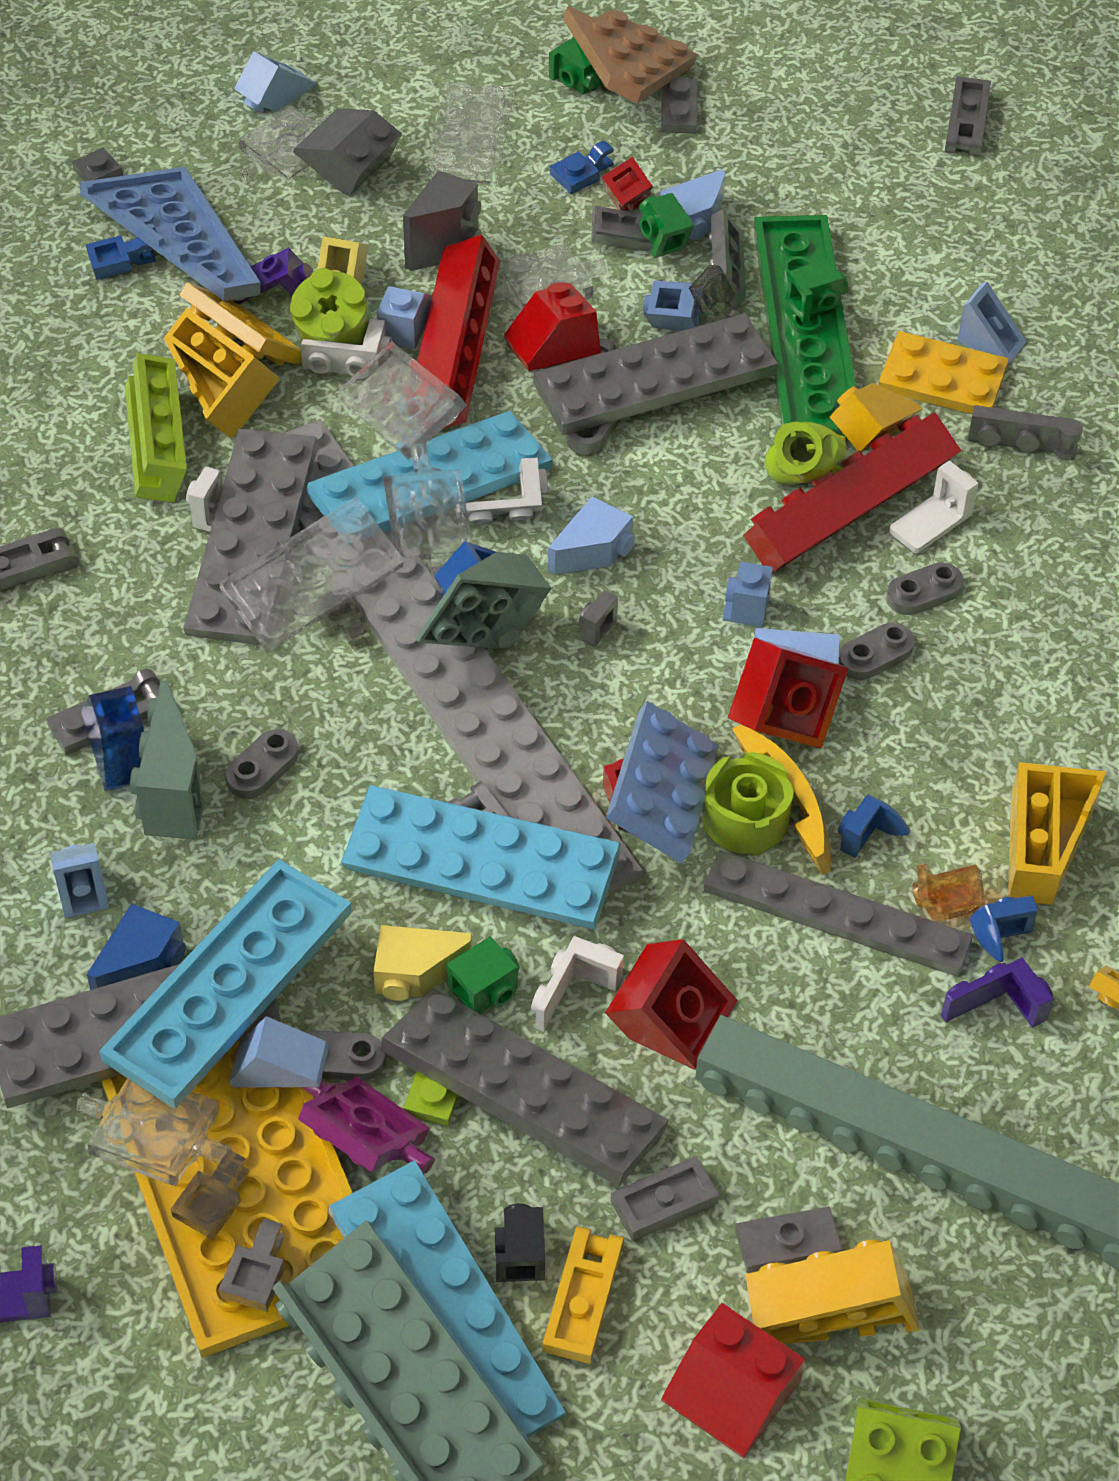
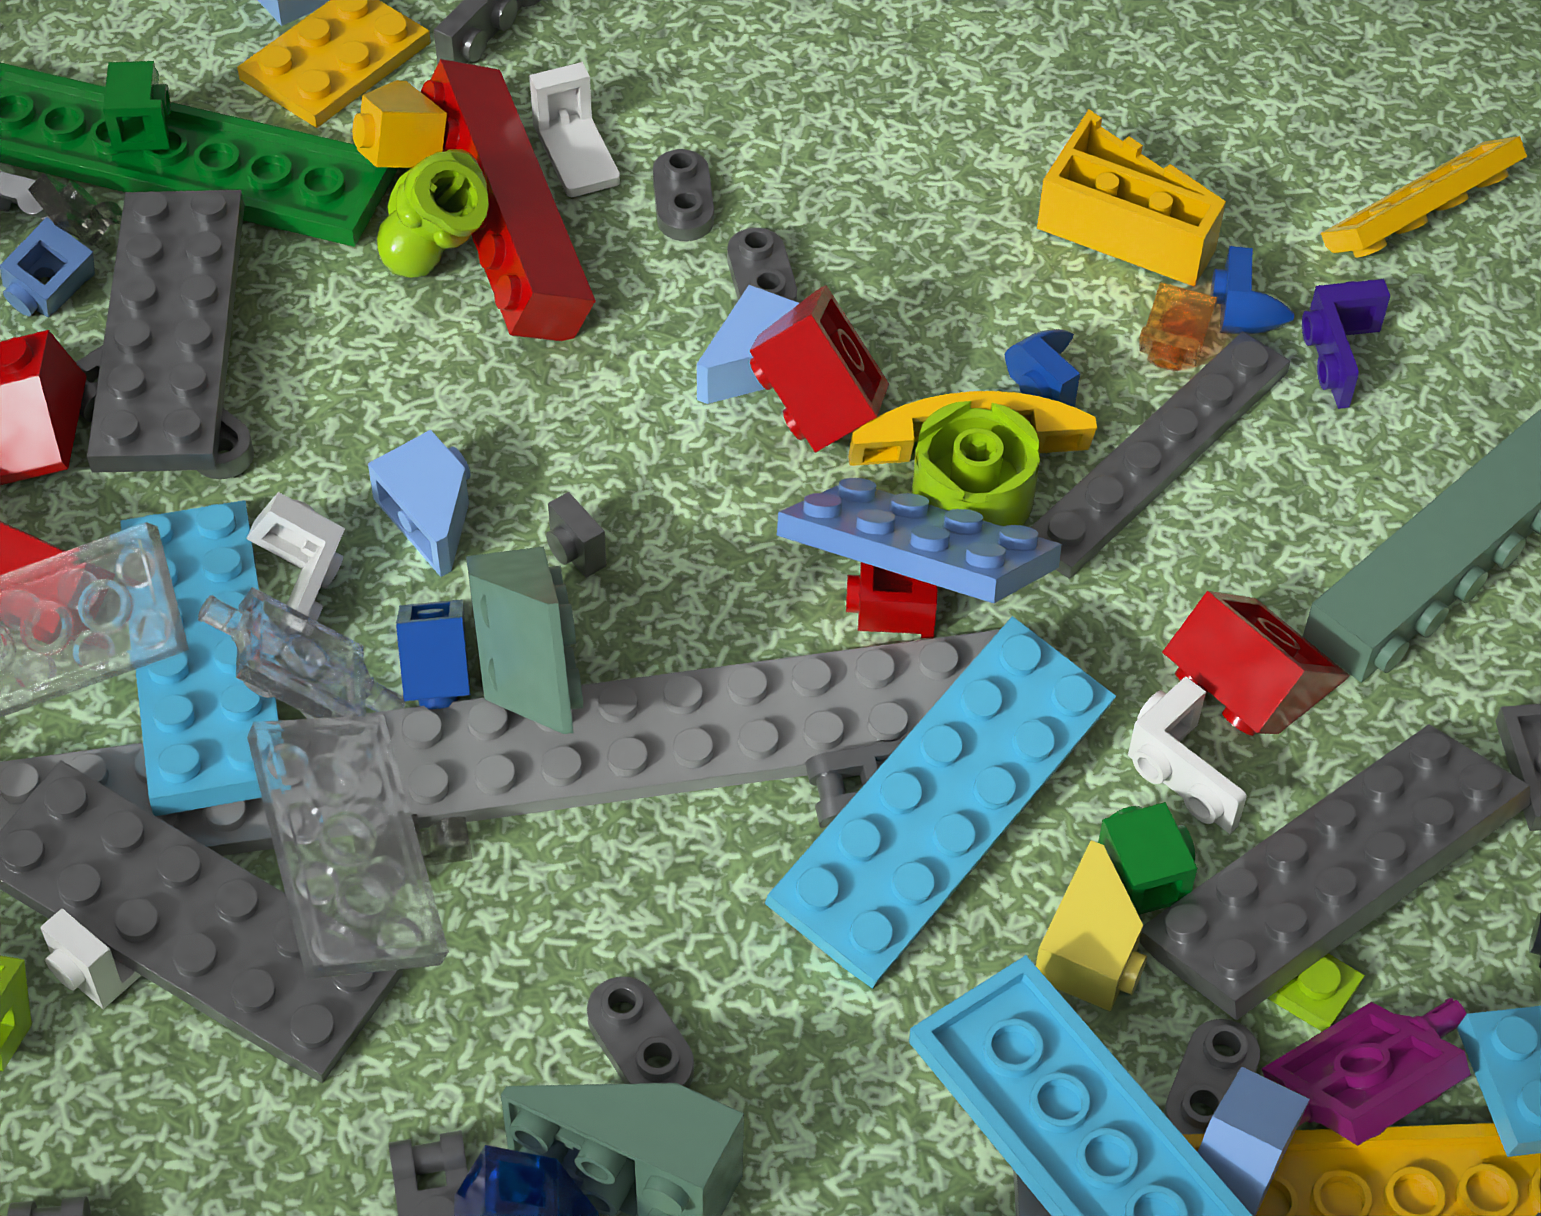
camera: 70 degrees left, 0 degrees up
(748, 594) = (620, 360): medium blue brick -> none

